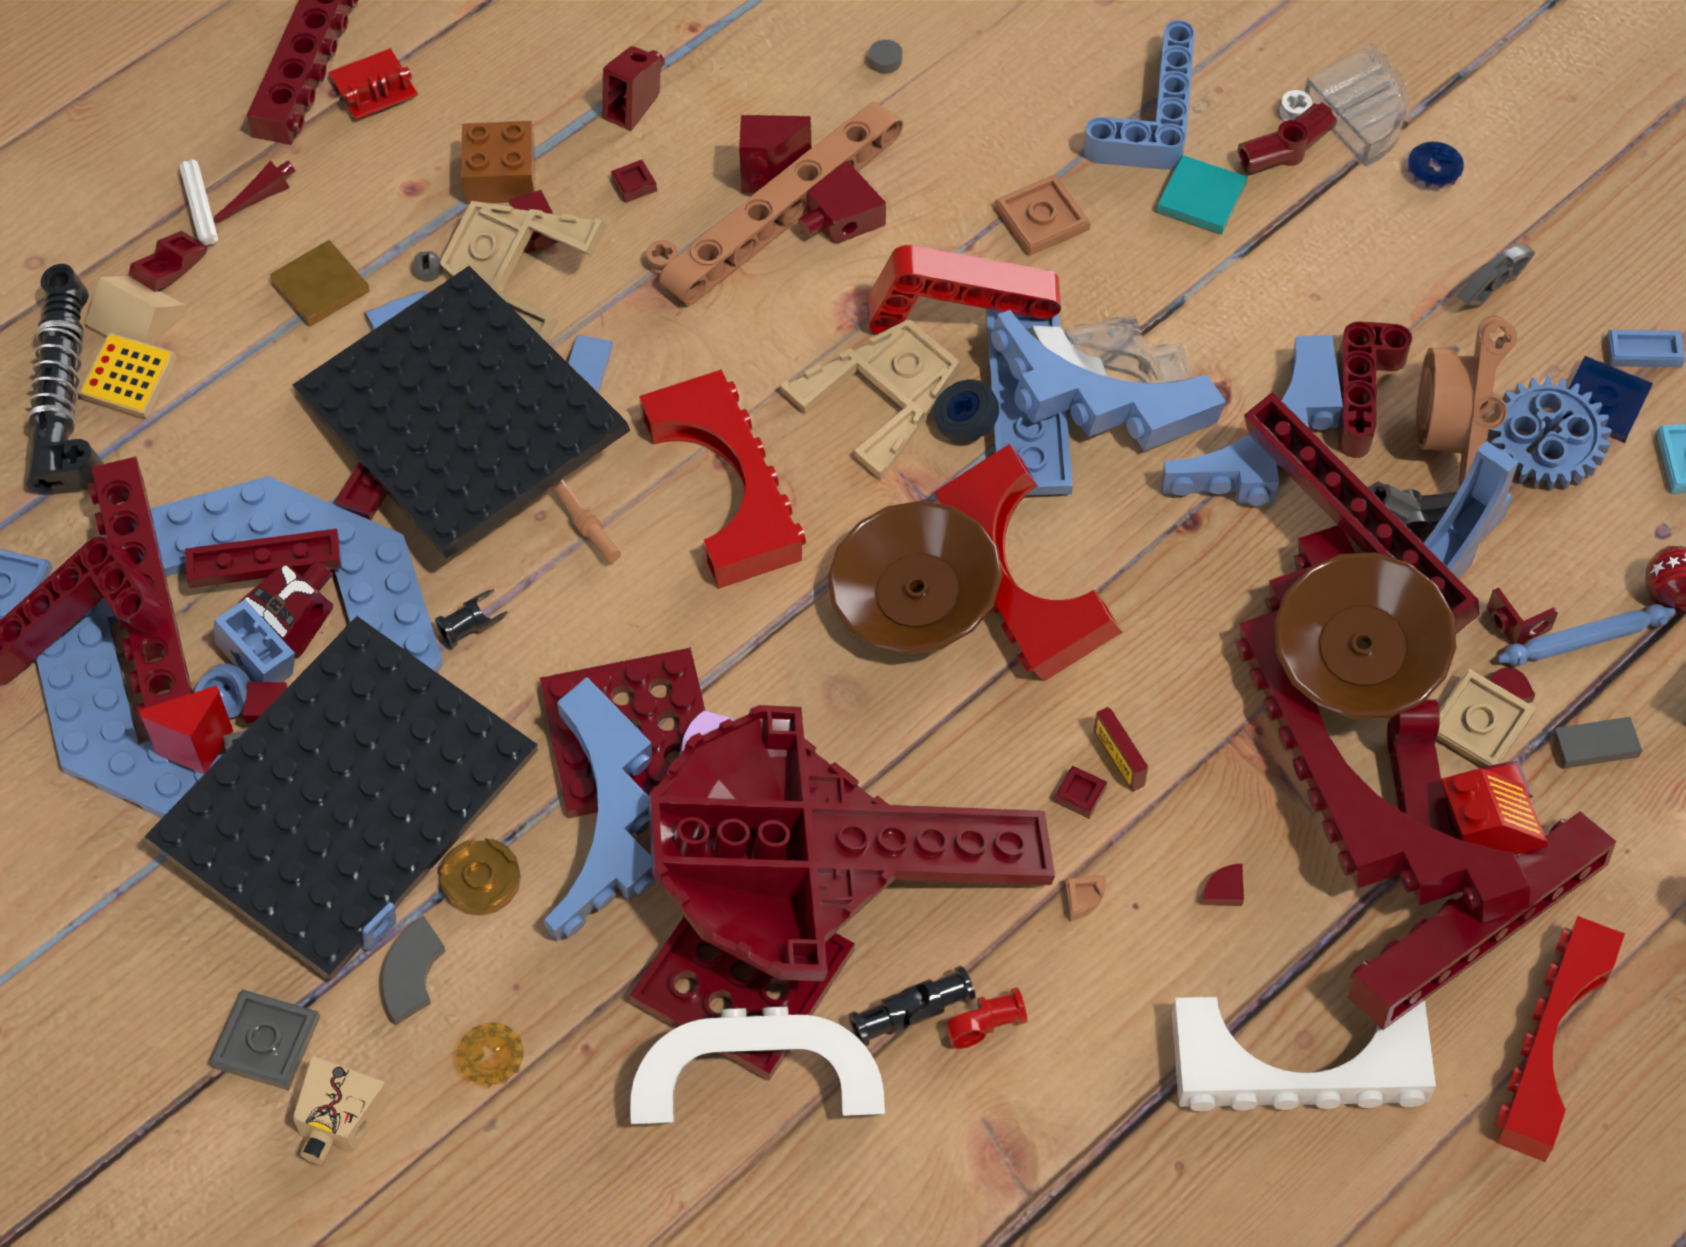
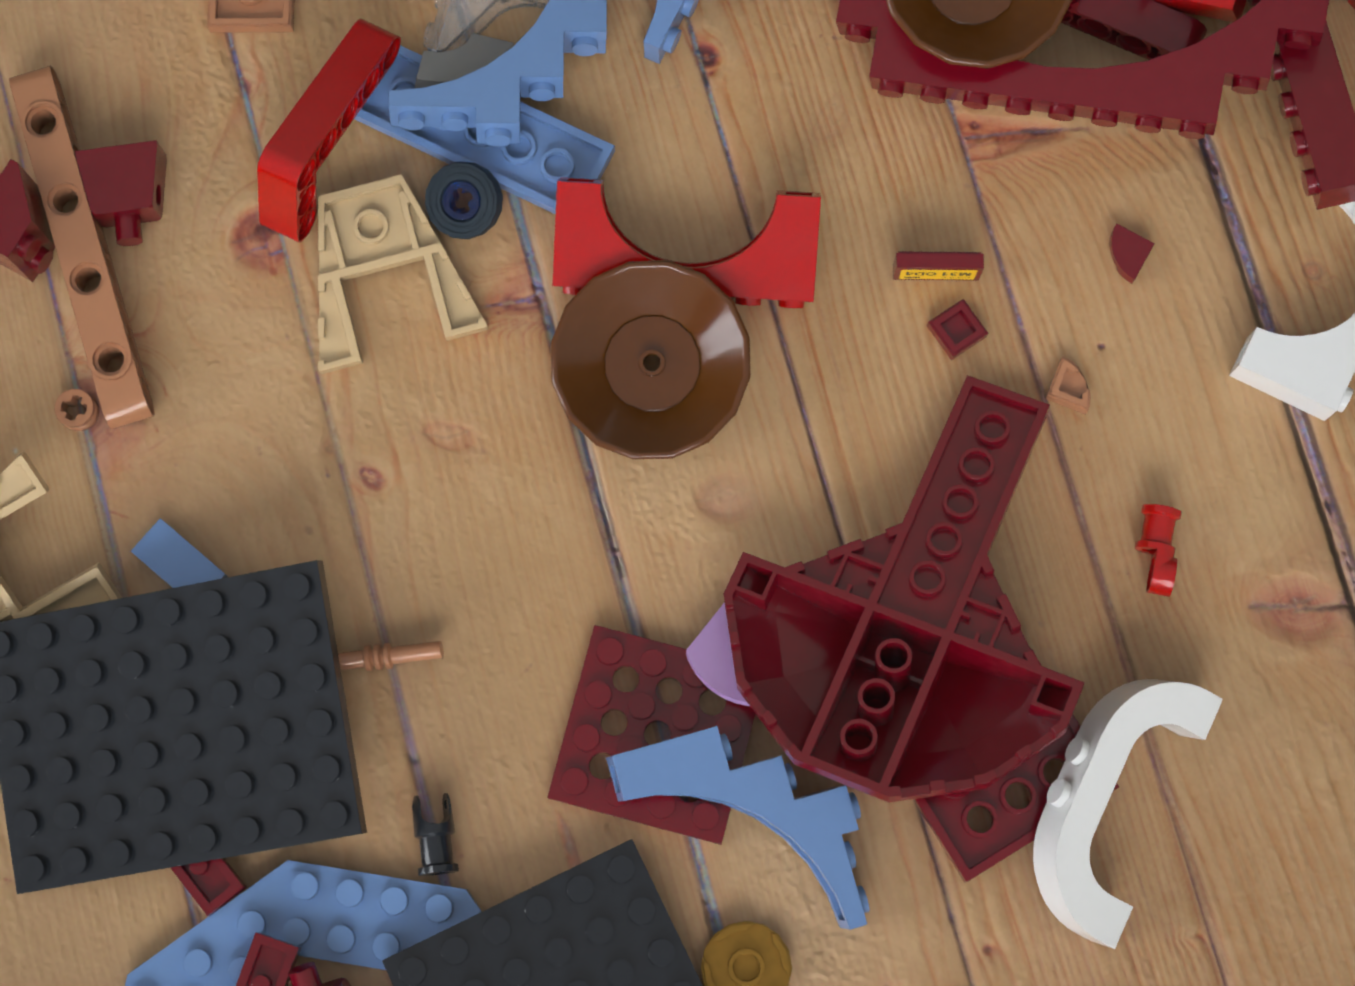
camera: 60 degrees left, 20 degrees up
(708, 415) = (319, 462): red arch -> none
(906, 1008) = (1111, 614): black piece -> none

